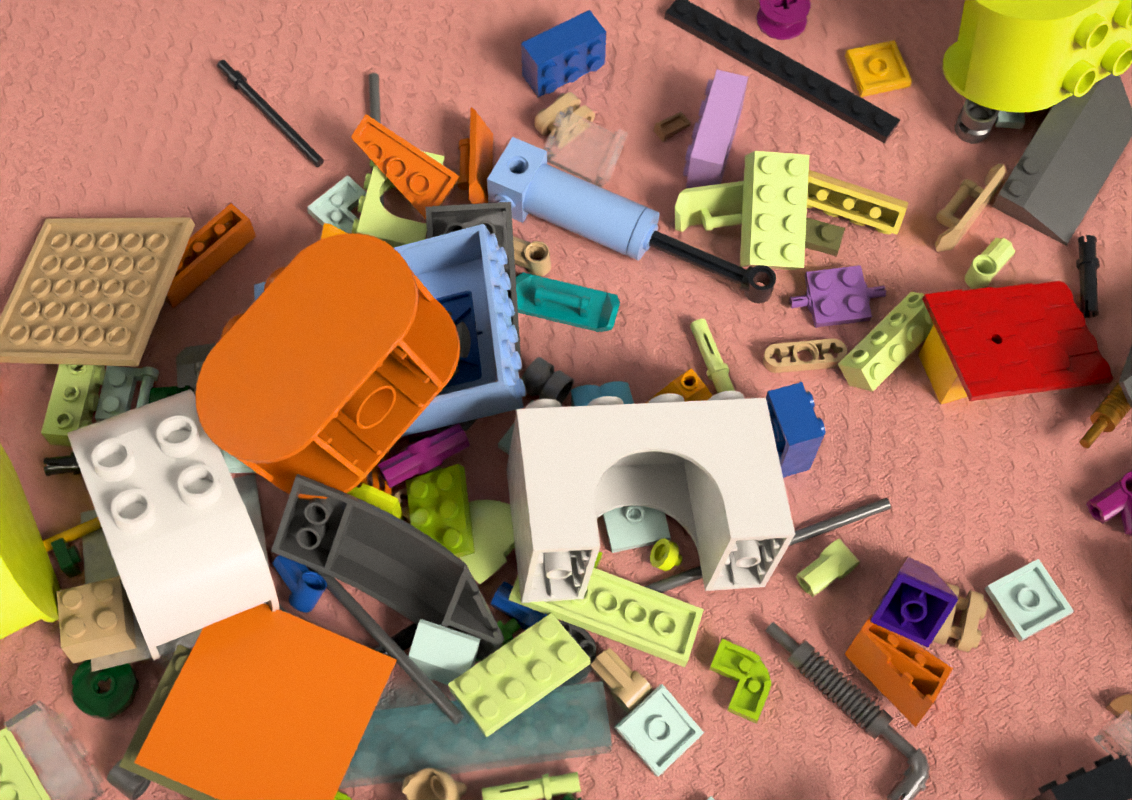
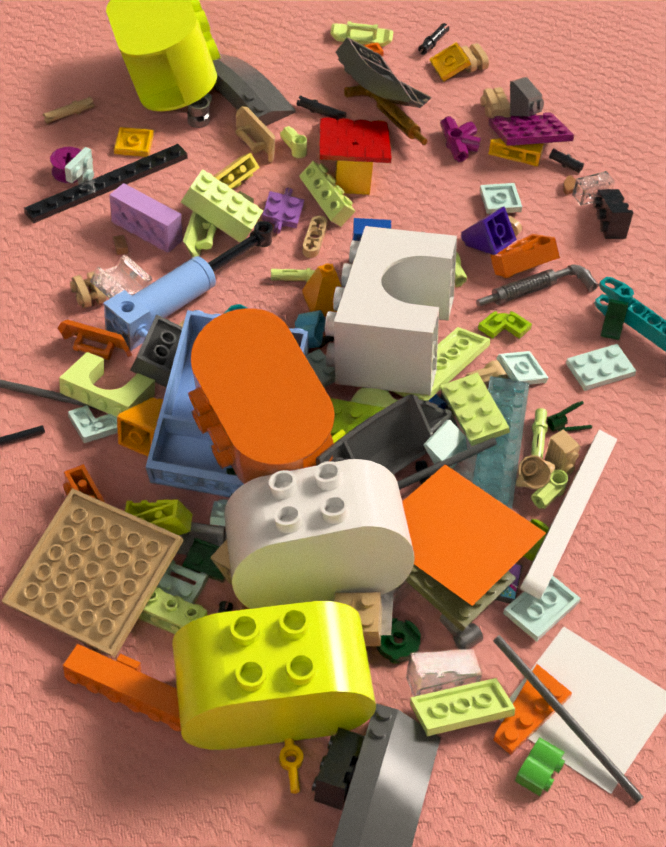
camera: 75 degrees left, 15 degrees down
(191, 327) = (163, 513): none -> neon yellow wedge
(410, 170) = (91, 366): orange wing -> none
(563, 53) = (41, 270): blue brick -> none
(774, 19) = (80, 167): none -> light aqua plate

